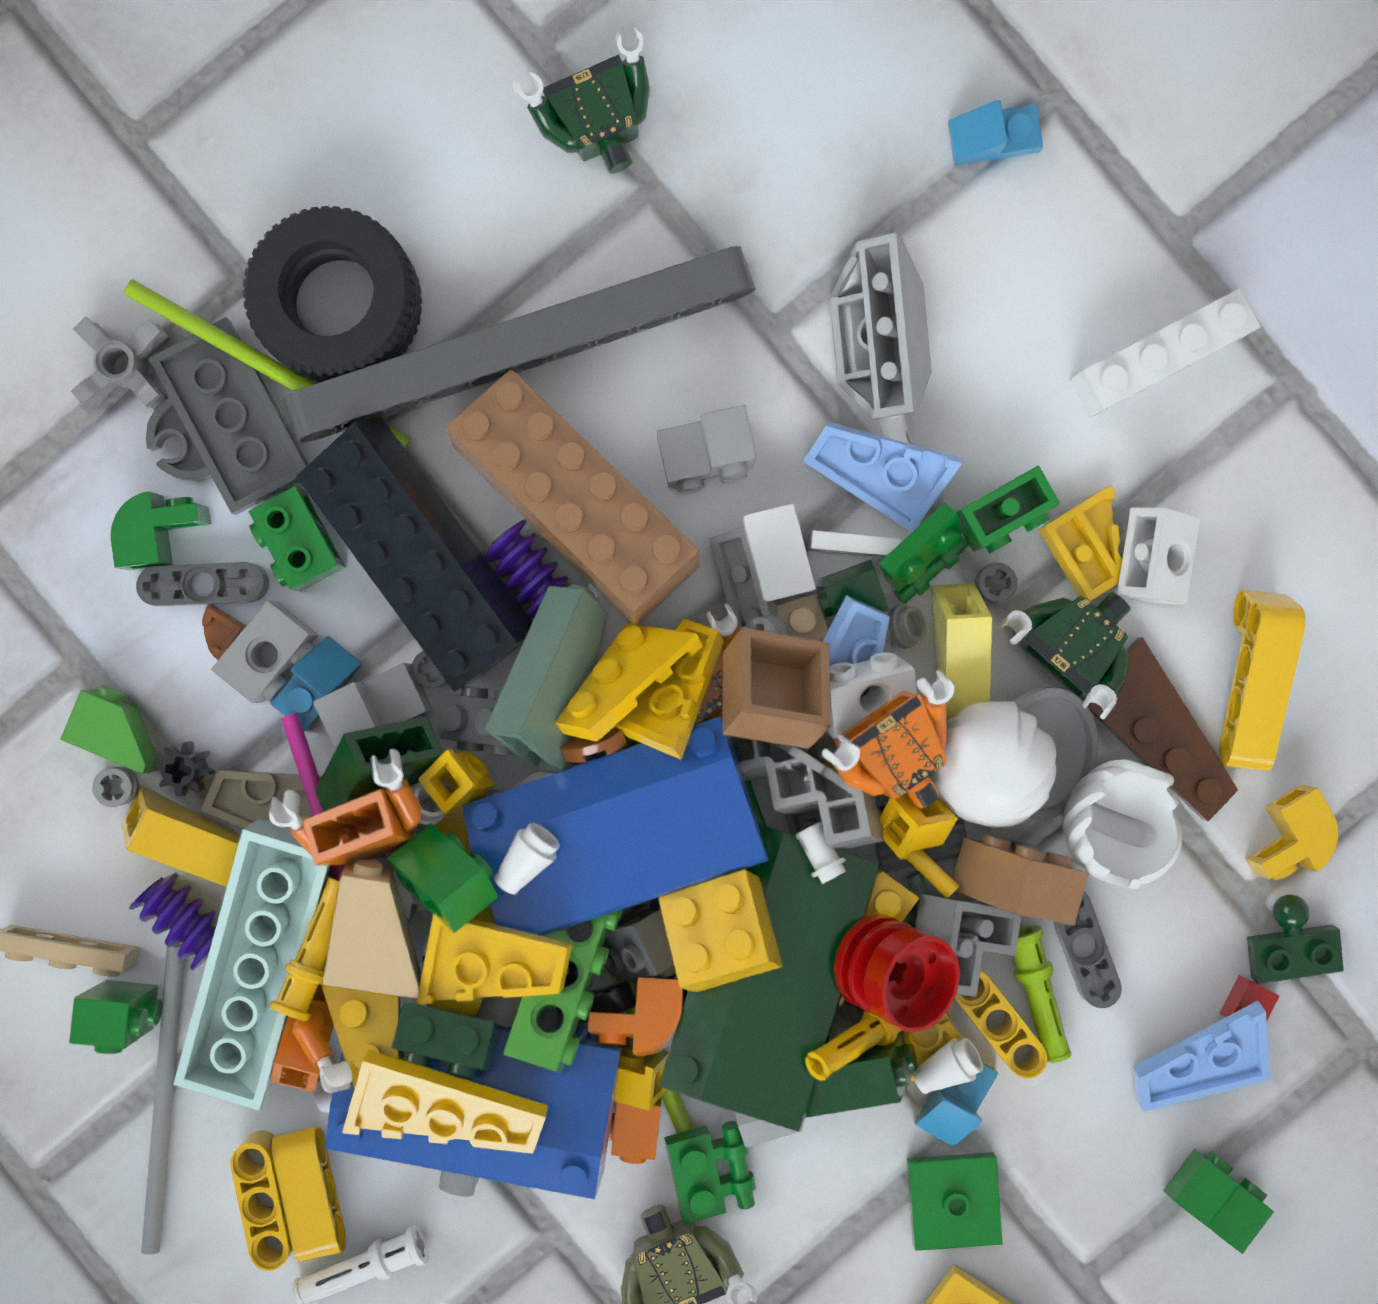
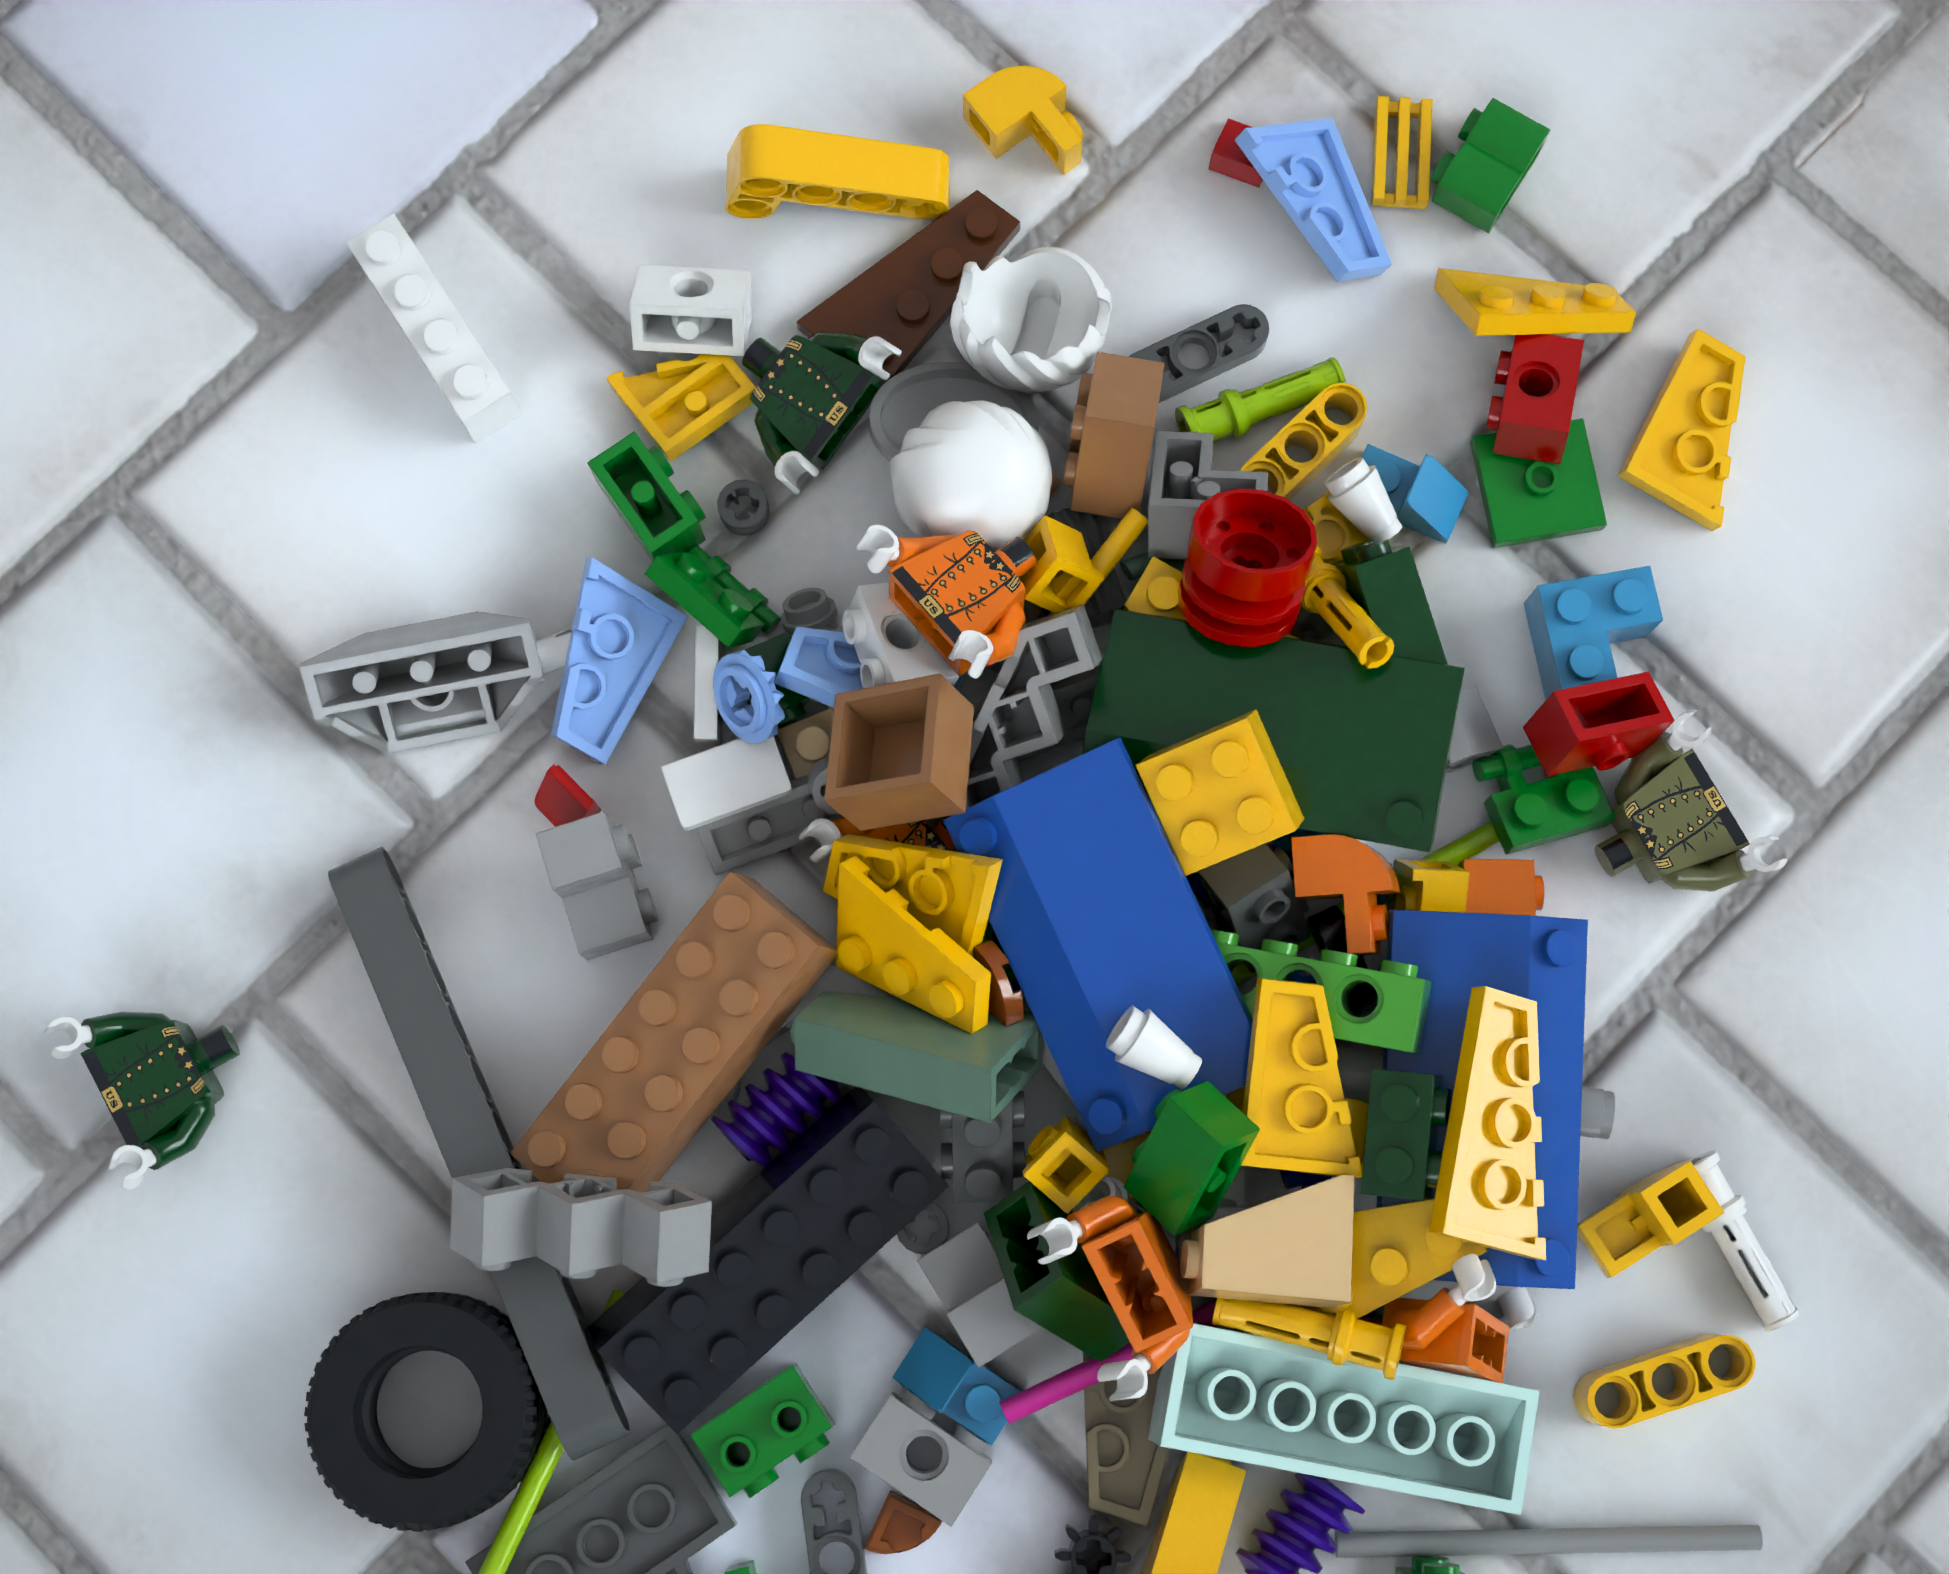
camera: 100 degrees left, 10 degrees down
(308, 1194) = (1647, 1321): yellow beam -> none
(385, 1207) = (1648, 1216): none -> yellow brick
(444, 417) = (580, 1225): none -> light grey brick
(752, 1224) = (1598, 724): none -> red brick
(776, 429) = (563, 799): none -> red slope
(822, 857) = (1107, 678): white pin -> none
(834, 1214) = (1581, 617): none -> dark azure brick
(850, 564) = (733, 681): none -> light blue gear
(962, 643) = (817, 538): light yellow slope -> none
(995, 133) = (163, 564): dark azure slope -> none
(1041, 1225) = (1540, 424): none -> red brick
(1096, 1217) = (1532, 306): none -> yellow wing
(1272, 1137) = (1404, 111): none -> yellow tile
(1295, 950) = (1168, 102): dark green plate -> none

